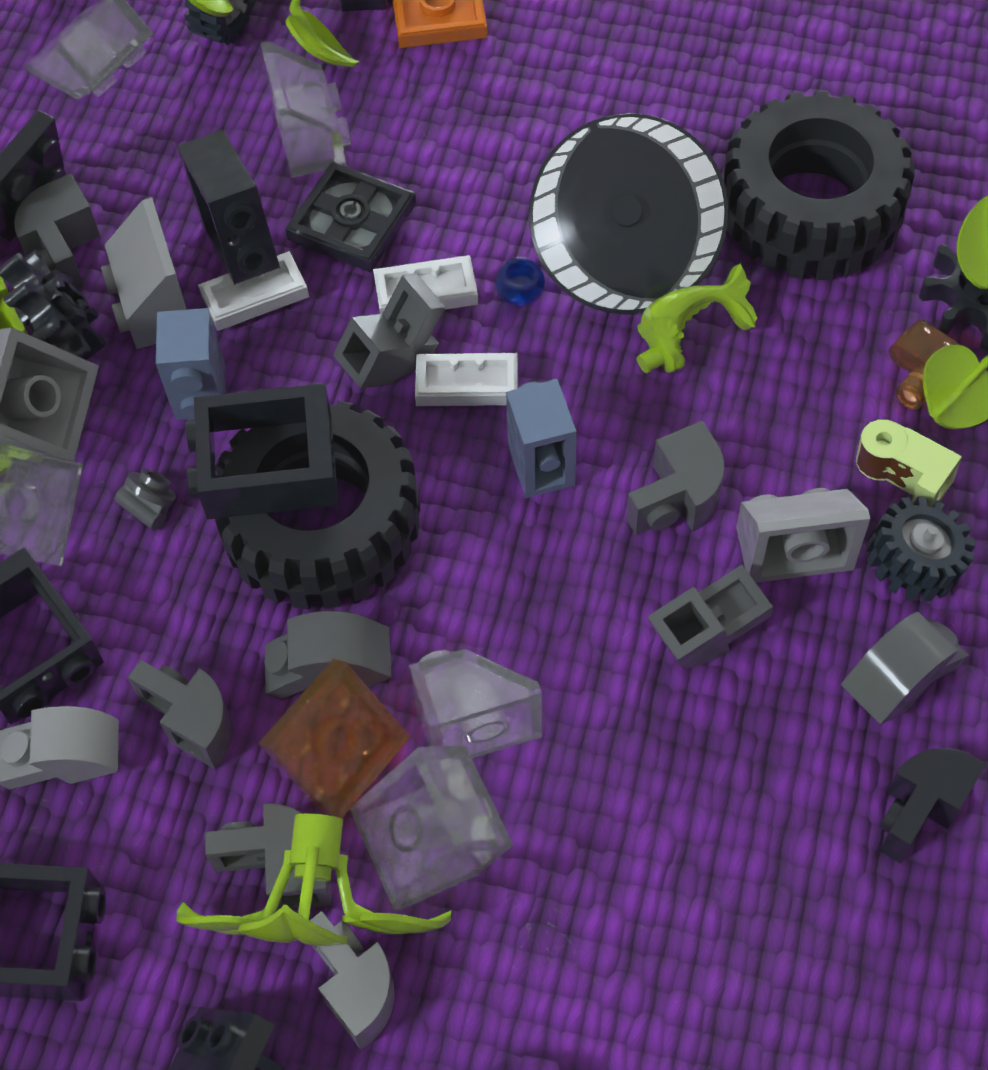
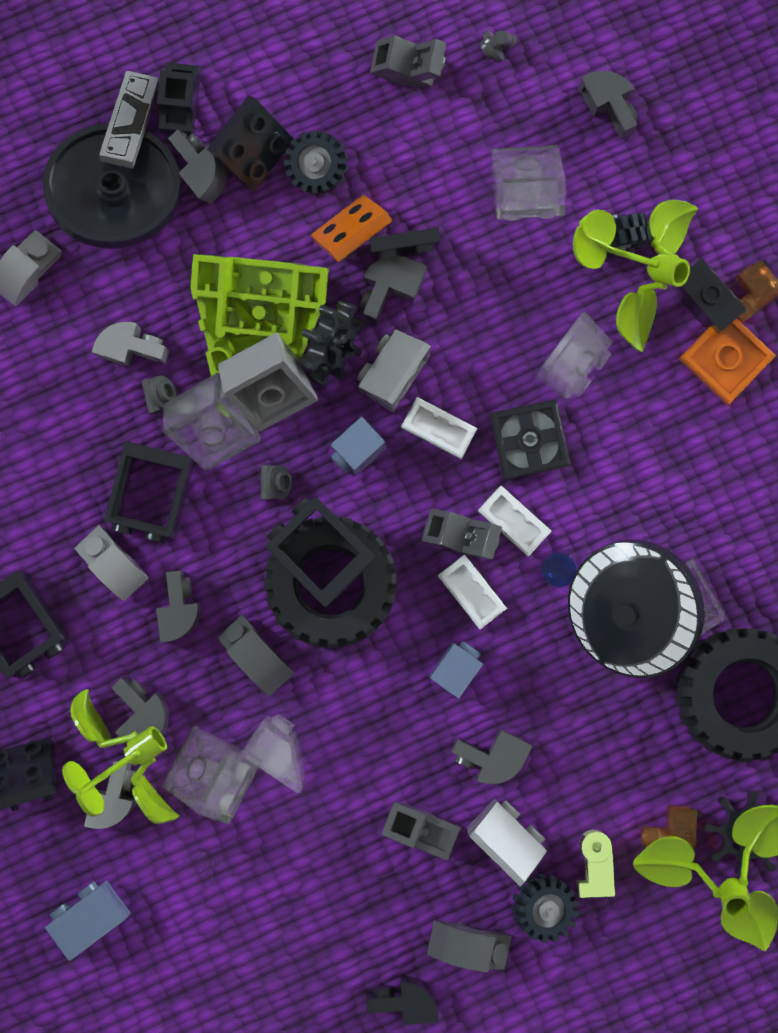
camera: 55 degrees right, 25 degrees up
(229, 206) = (467, 381): black window -> none
(335, 739) = (213, 699): clear orange plate -> none
(666, 317) = (591, 673): lime animal -> none

